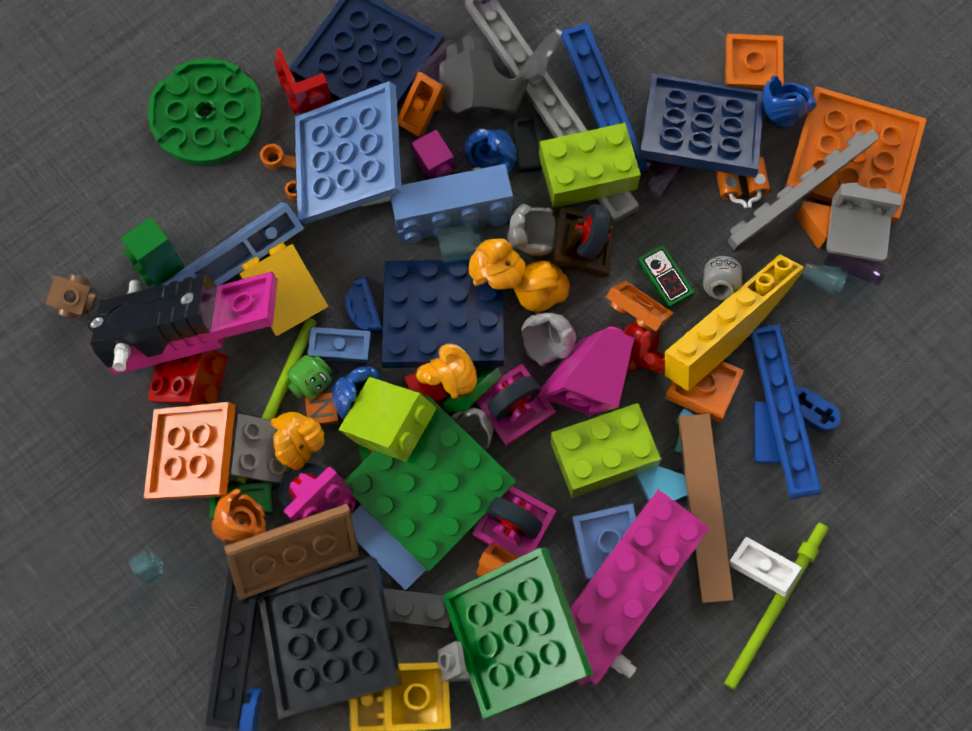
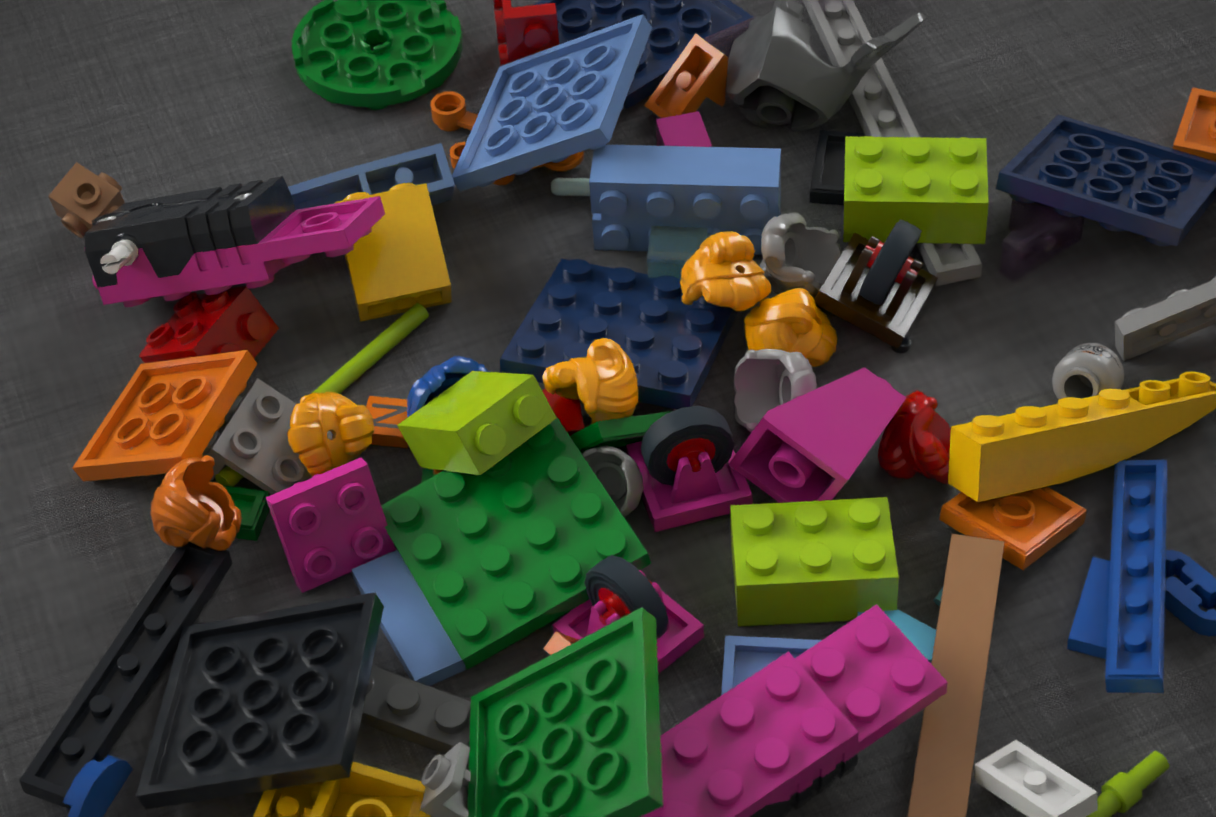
camera: 20 degrees right, 25 degrees down
(146, 566) = (33, 548): clear light blue piece -> none
(151, 253) = (219, 144): green wedge -> none
(292, 551) = (252, 562): medium nougat tile -> none
(309, 377) = (385, 368): bright green head -> none
(340, 344) = (438, 339): medium blue plate -> none
(361, 307) = (503, 308): blue tile -> none
(490, 149) = (795, 151): blue hair -> none
(597, 83) = (969, 116): blue plate -> none
(648, 311) = (931, 379): orange plate -> none
(665, 277) = (996, 368): tile -> none
(730, 186) = (1141, 261): orange piece -> none

